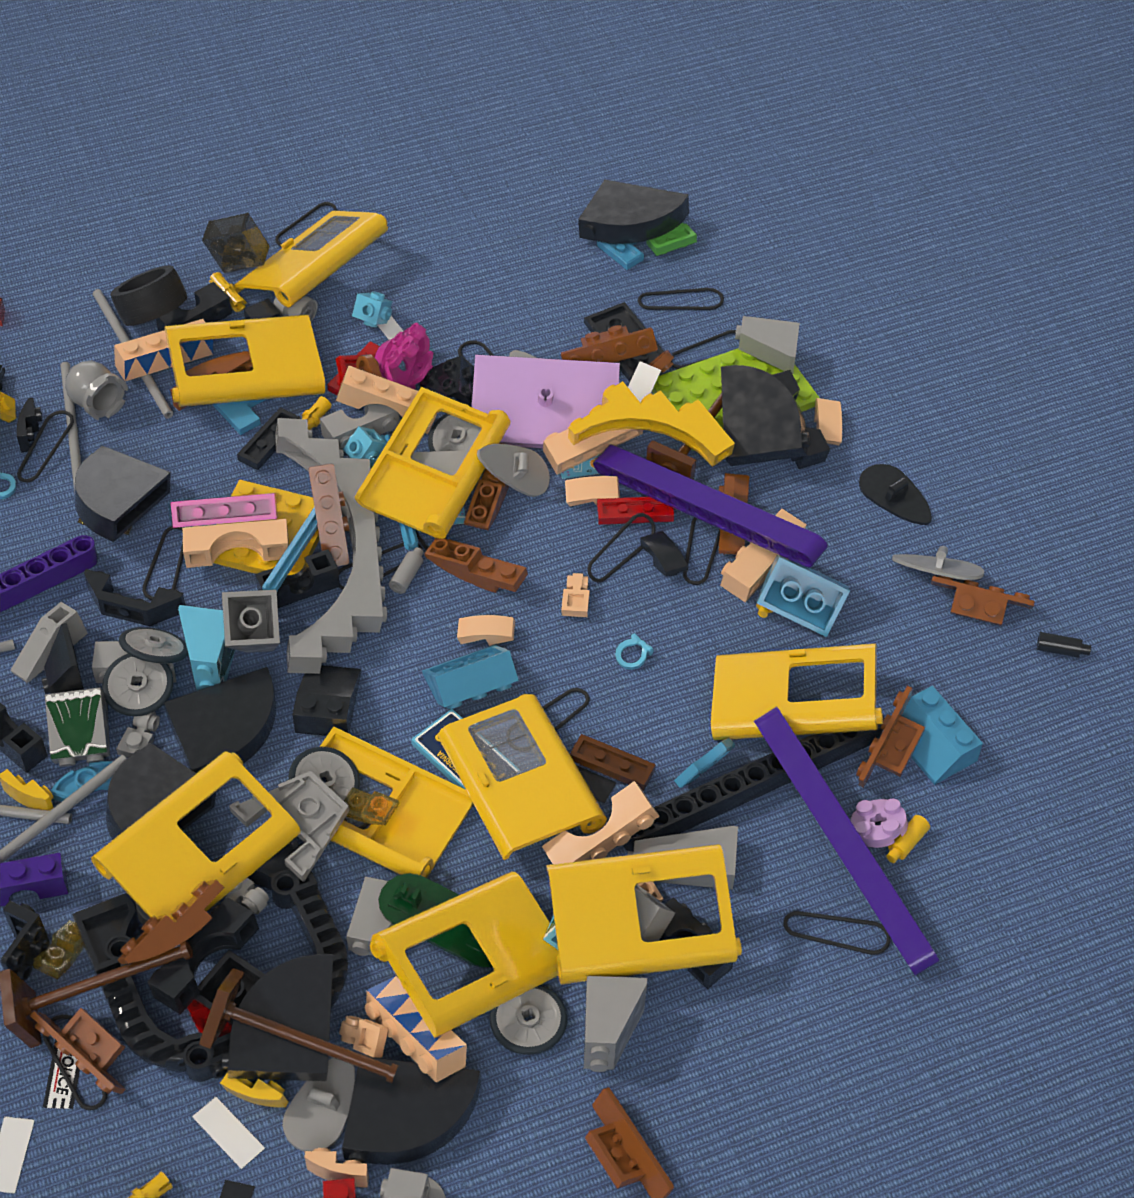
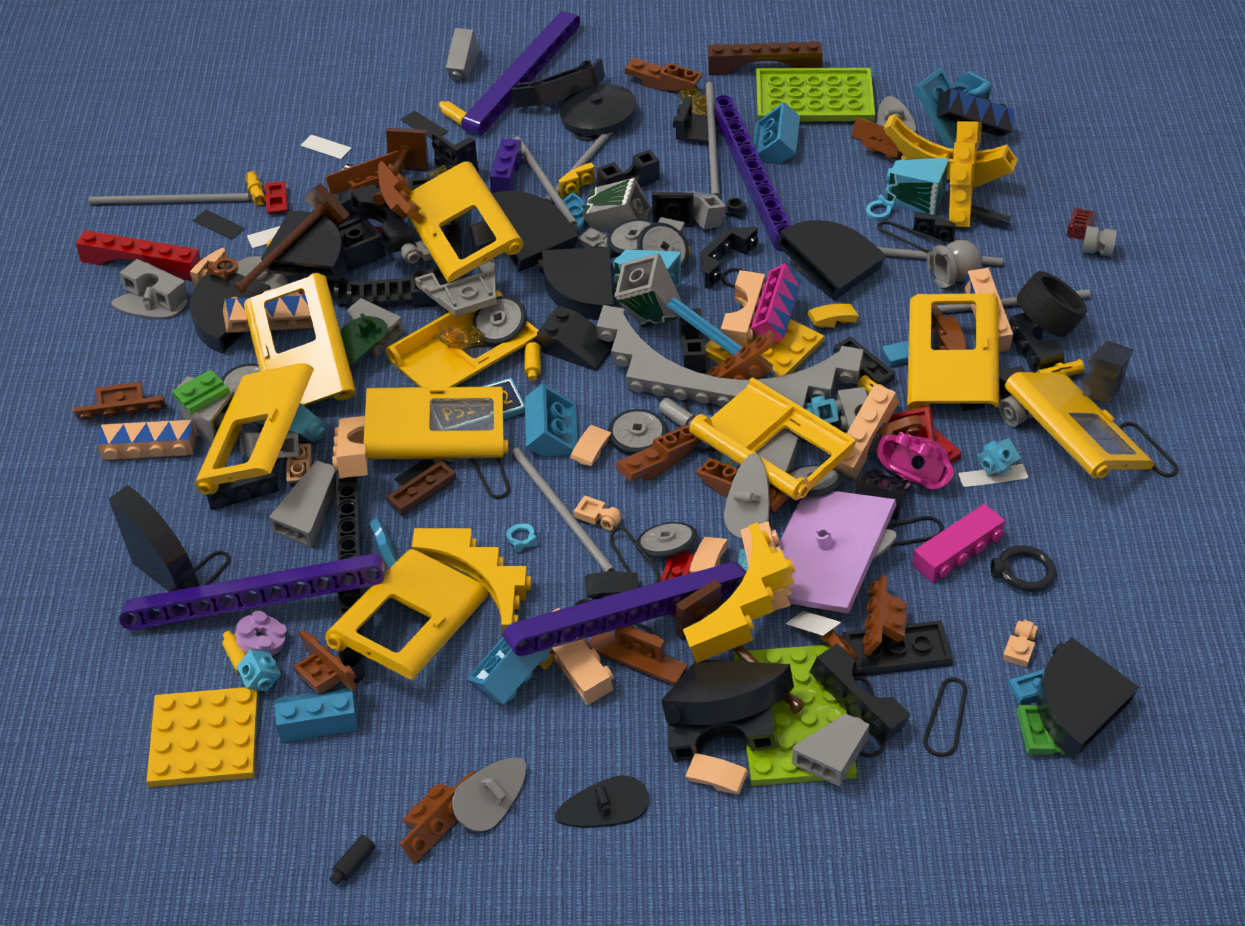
camera: 115 degrees right, 5 degrees down
(18, 289) = (1099, 241): none -> light grey wheel
(31, 611) = (735, 207): none -> black plate
(162, 1155) = (276, 197): none -> red slope
(204, 478) = (829, 314): none -> yellow slope
(358, 1137) = (223, 273): none -> dark orange piece
(377, 727) = (532, 361): none -> yellow cylinder
(443, 600) = (635, 430): none -> light grey wheel
(490, 319) = (958, 543): none -> dark pink brick
(504, 289) = (1001, 568): none -> black piece
(580, 632) = (563, 511): none -> light grey piece
(581, 514) = (667, 539): none -> light grey wheel
(588, 266) = (1020, 648): none -> light nougat plate
(609, 1005) = (200, 392): none -> bright green plate
(672, 1081) = (147, 439): none -> light nougat brick
(691, 661) = (460, 552): none -> yellow arch
(692, 357) = (834, 672): none -> black arch
(845, 955) = (152, 542): none -> black brick
(923, 798) = (258, 670): none -> medium azure brick
(1012, 826) = (203, 737): none -> yellow plate

